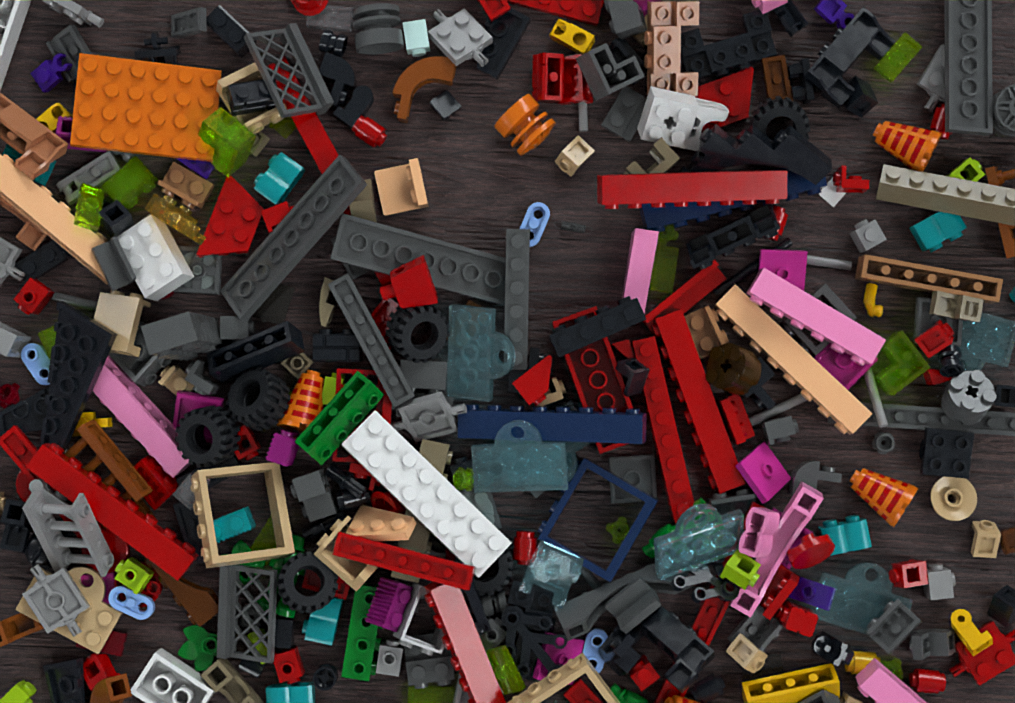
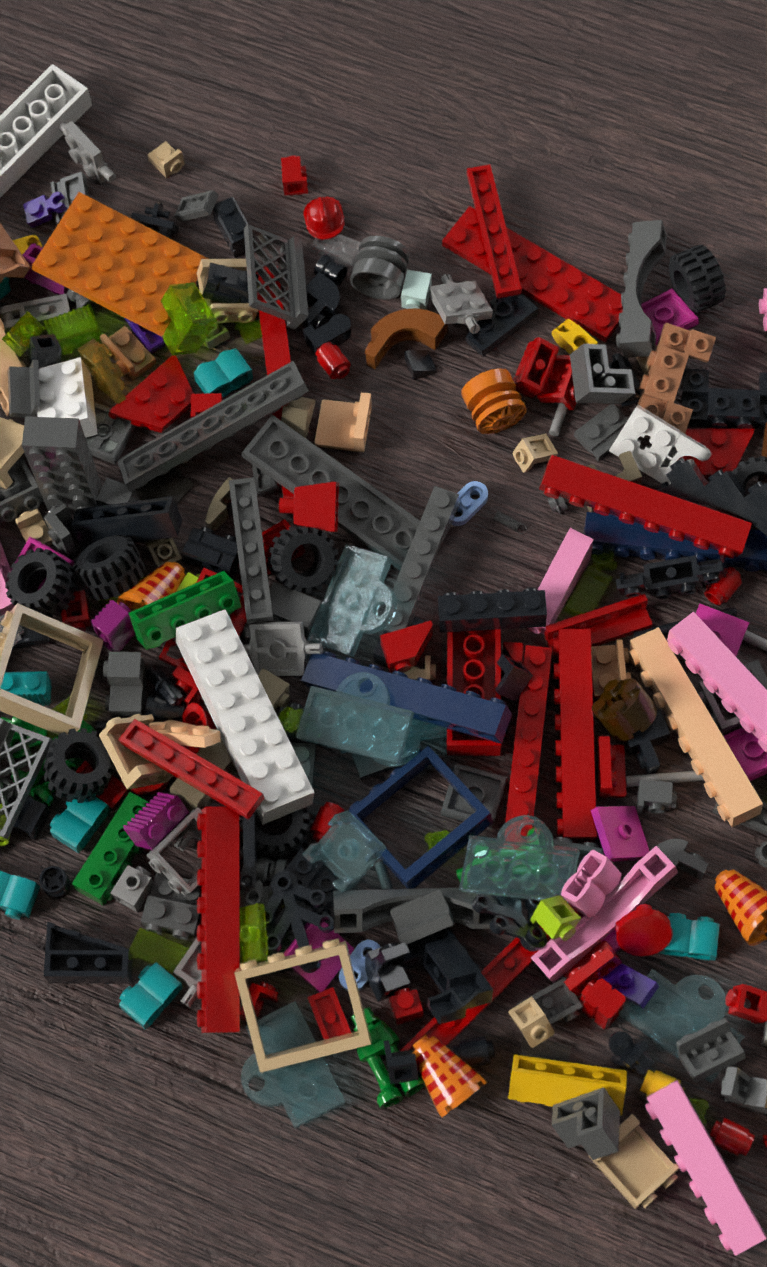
camera: 25 degrees right, 20 degrees down
(289, 665) = (21, 855): red brick -> none

